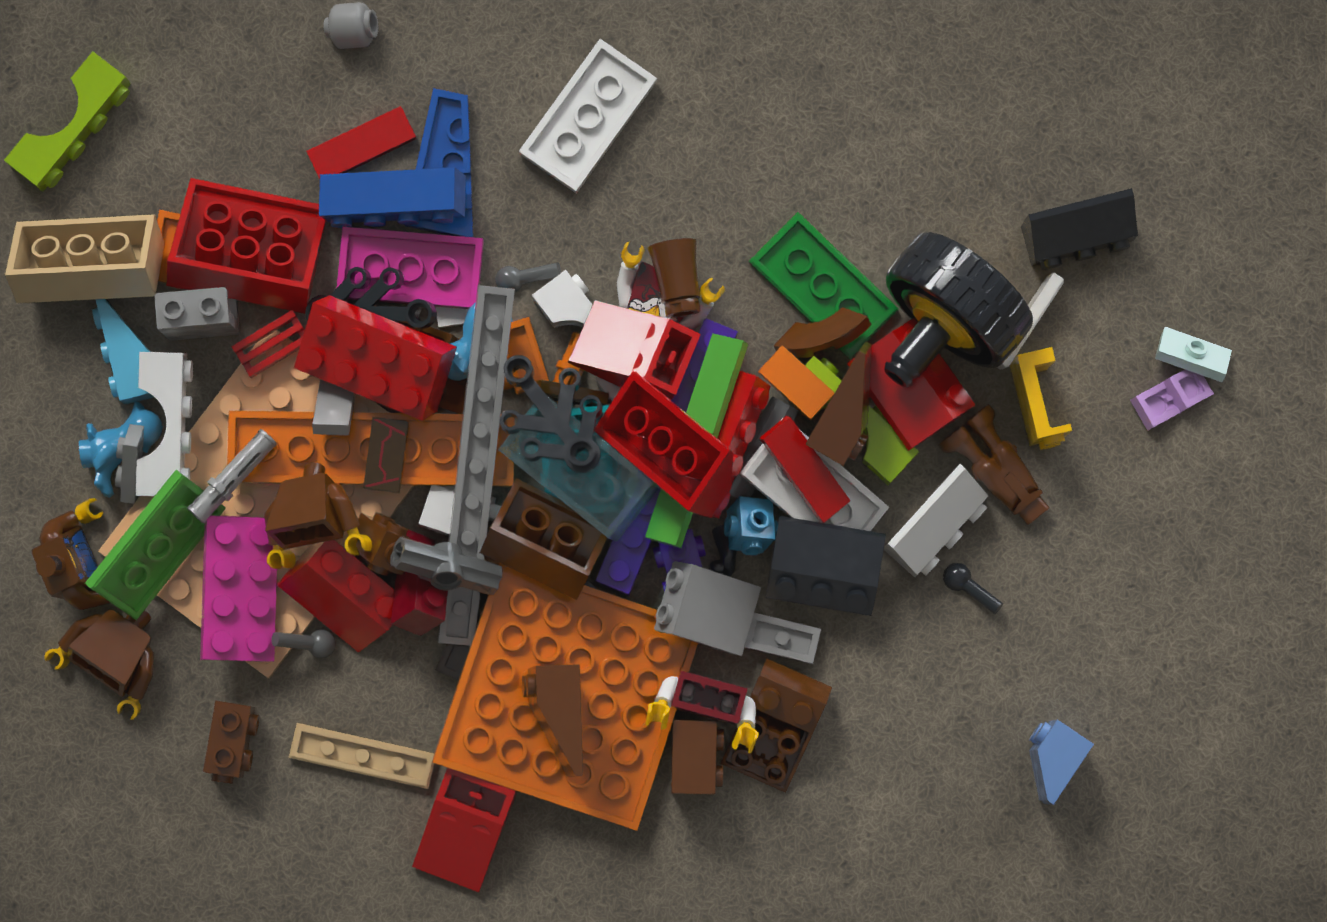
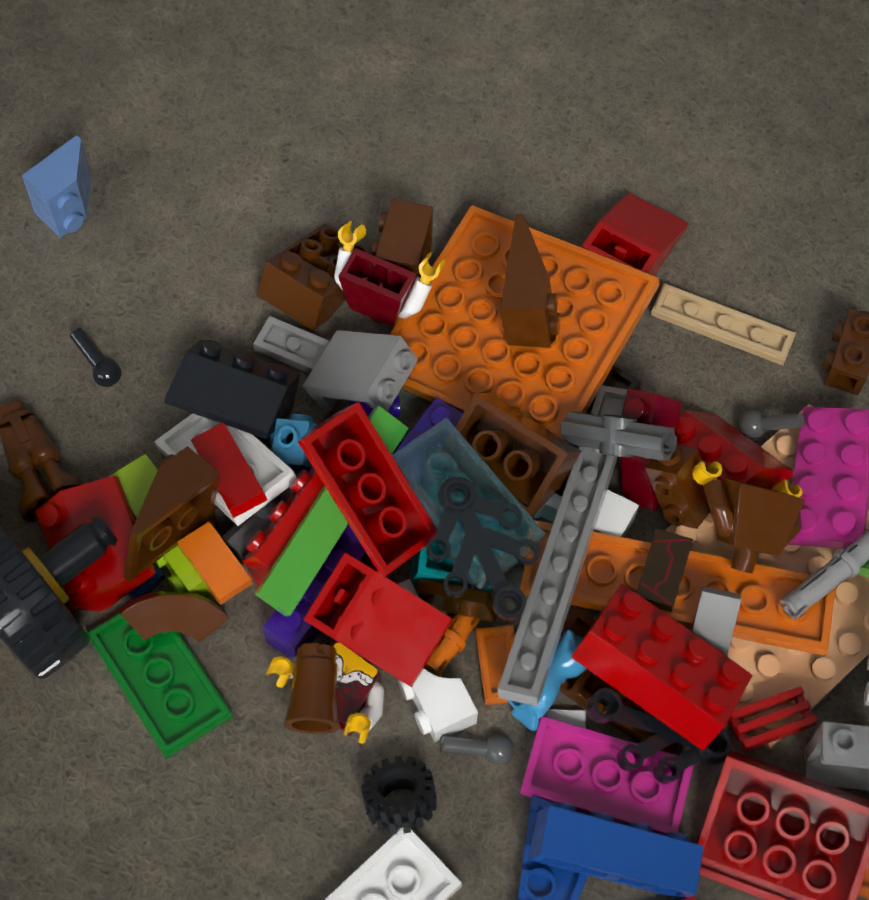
camera: 170 degrees left, 20 degrees down
(571, 198) = (405, 811): none -> black tyre
(938, 522) = (112, 416): white slope -> none

